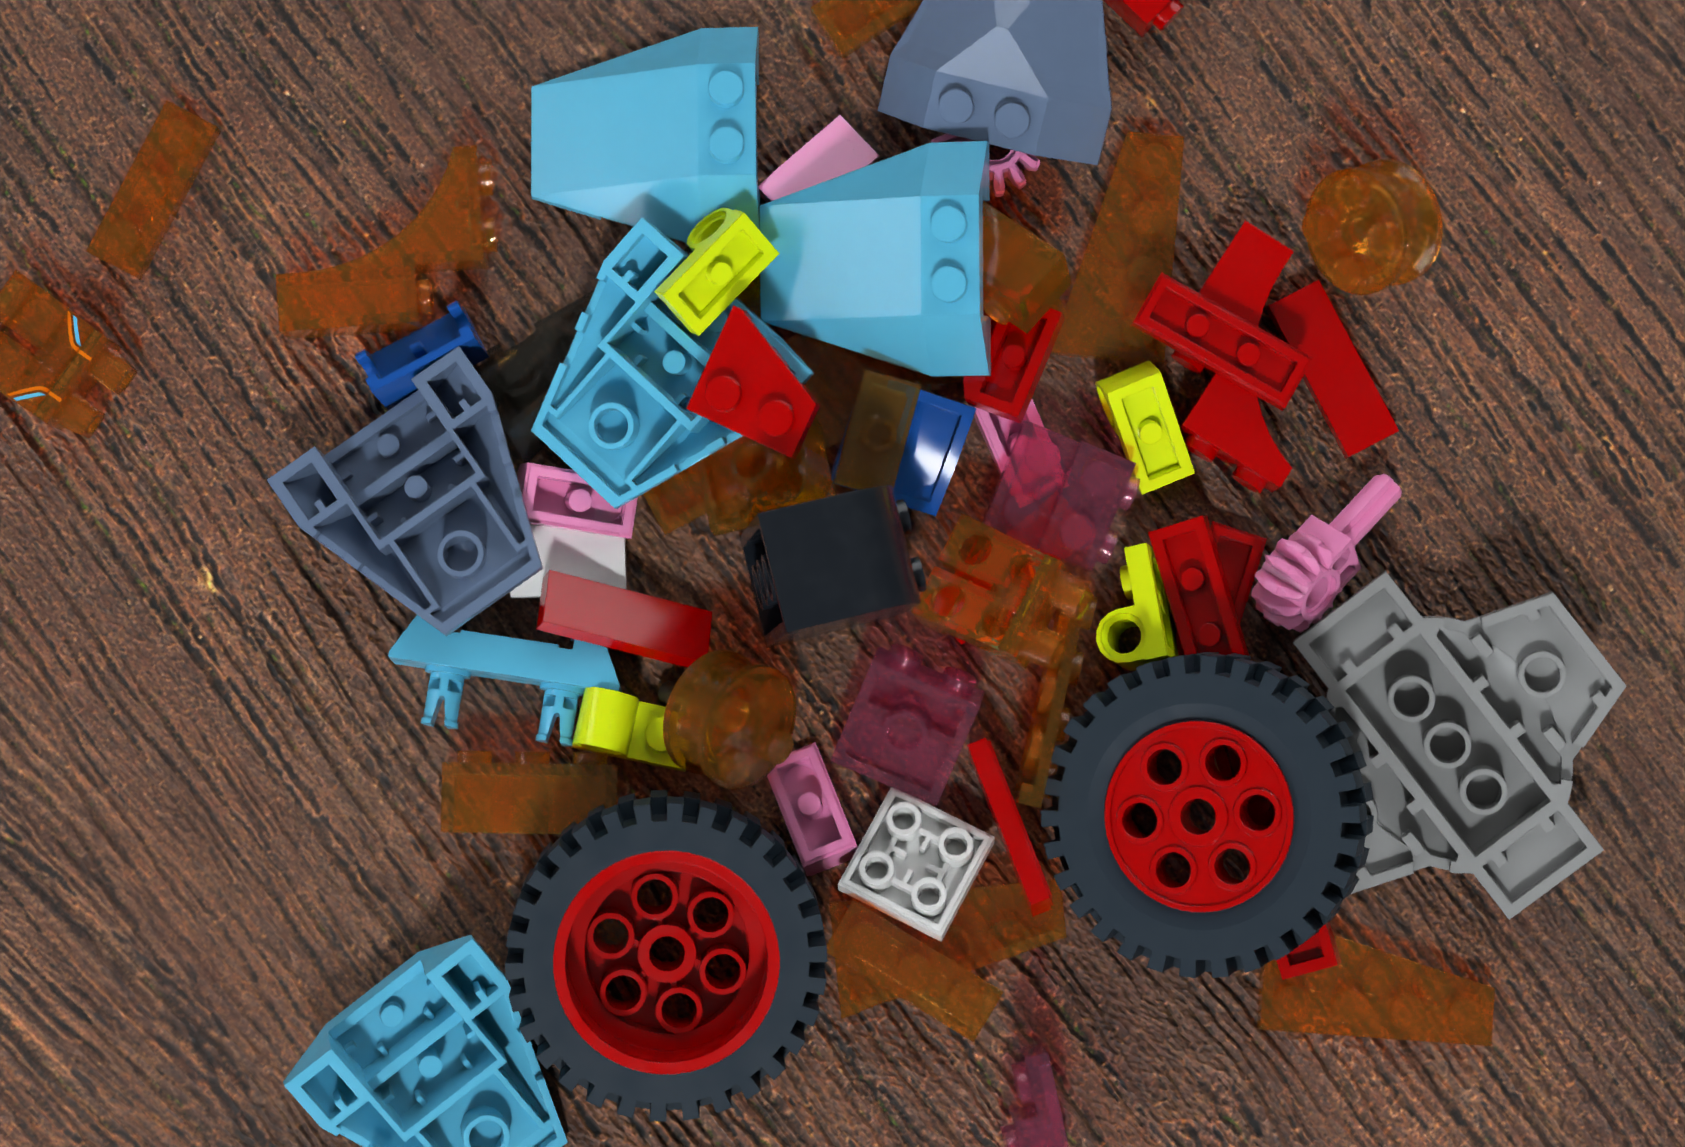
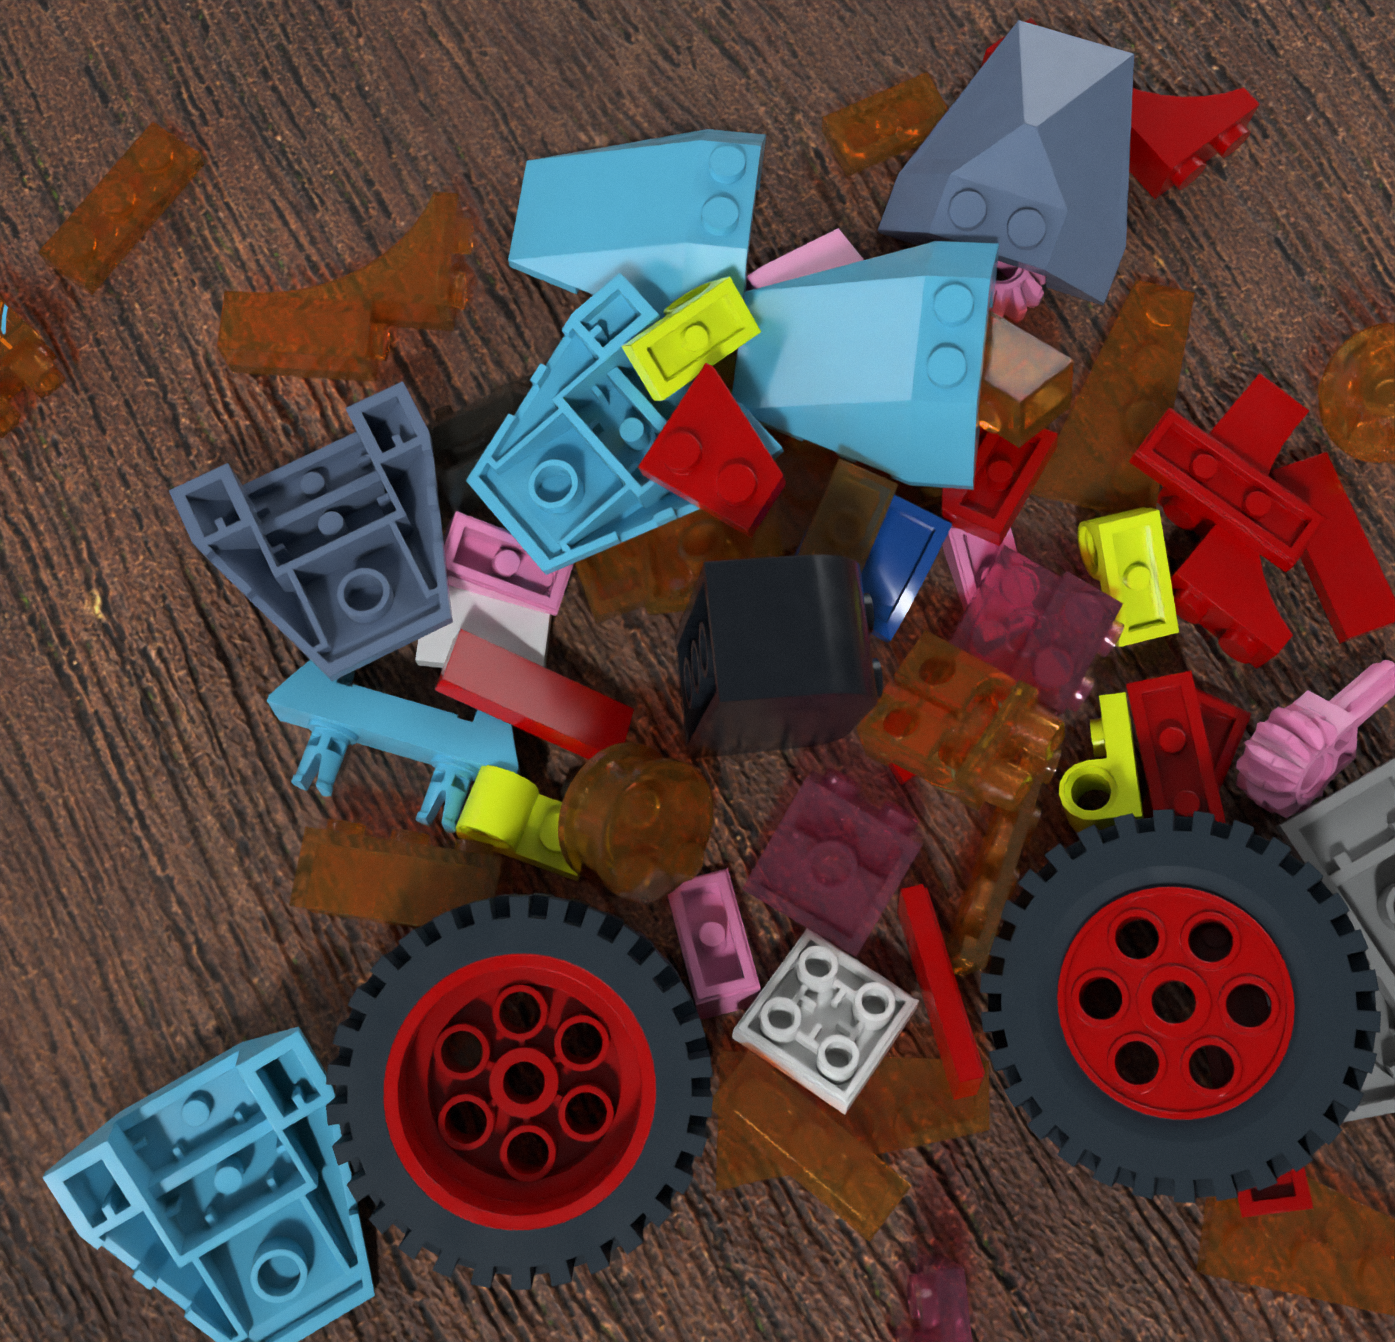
camera: 10 degrees right, 10 degrees down
(396, 364) = (326, 412): blue hinge -> none

